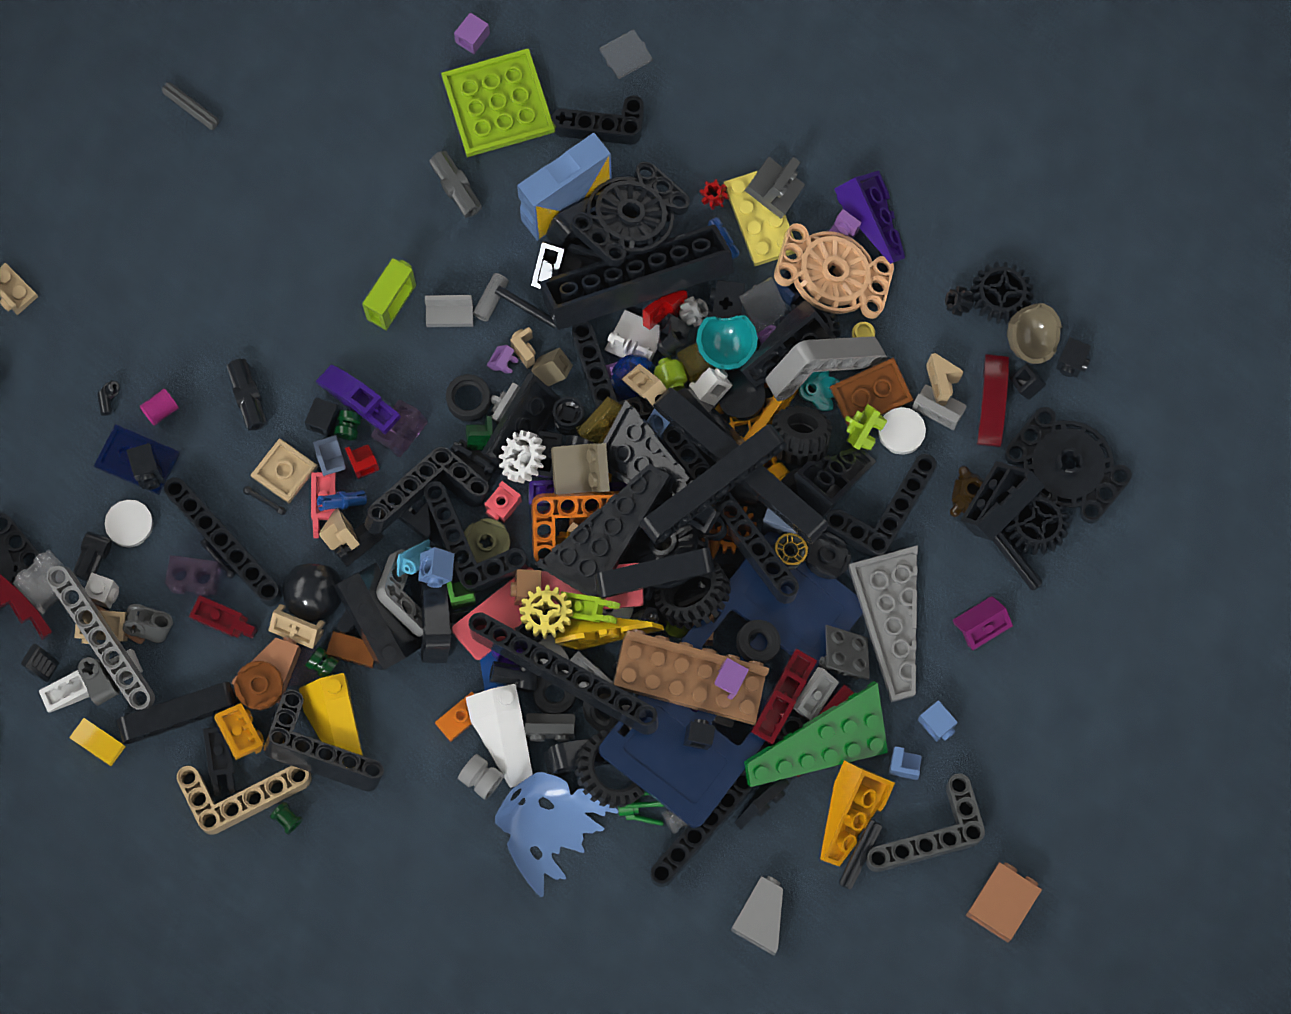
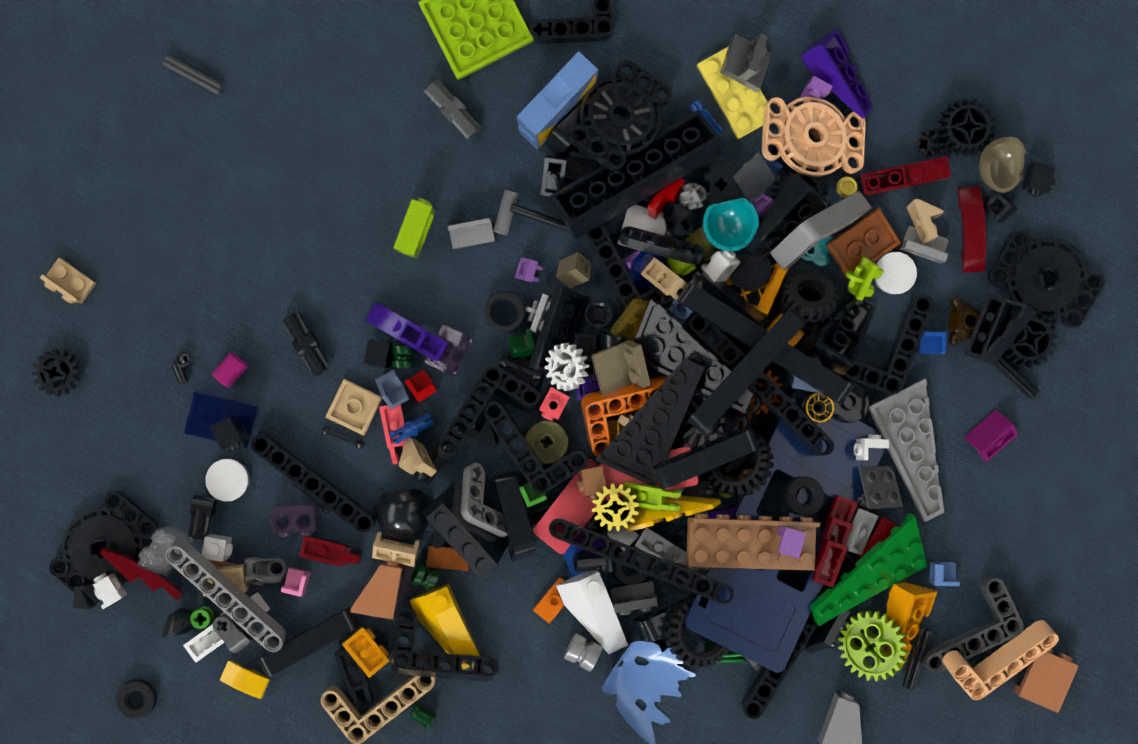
camera: 10 degrees left, 15 degrees up
(63, 658) = (199, 623): none -> bright green bush
(179, 645) = (296, 582): none -> bright pink panel
(259, 685) = (374, 611): dark orange tile -> none
(409, 560) = (485, 478): medium azure hinge -> none
(436, 567) = (509, 482): medium blue brick -> none
(523, 351) = (547, 258): tan bracket -> none
(649, 351) = (638, 238): none -> black beam
(699, 734) = (770, 594): black plate -> none
(714, 187) = (691, 71): red gear -> none
(827, 812) = (888, 635): none -> lime gear
(843, 601) = (873, 441): none -> white bracket
(927, 332) = (905, 176): none -> dark red slope
(929, 508) = (932, 343): none -> blue panel
(938, 722) = (967, 532): medium blue brick -> none
(950, 868) = (1002, 663): none -> light nougat beam

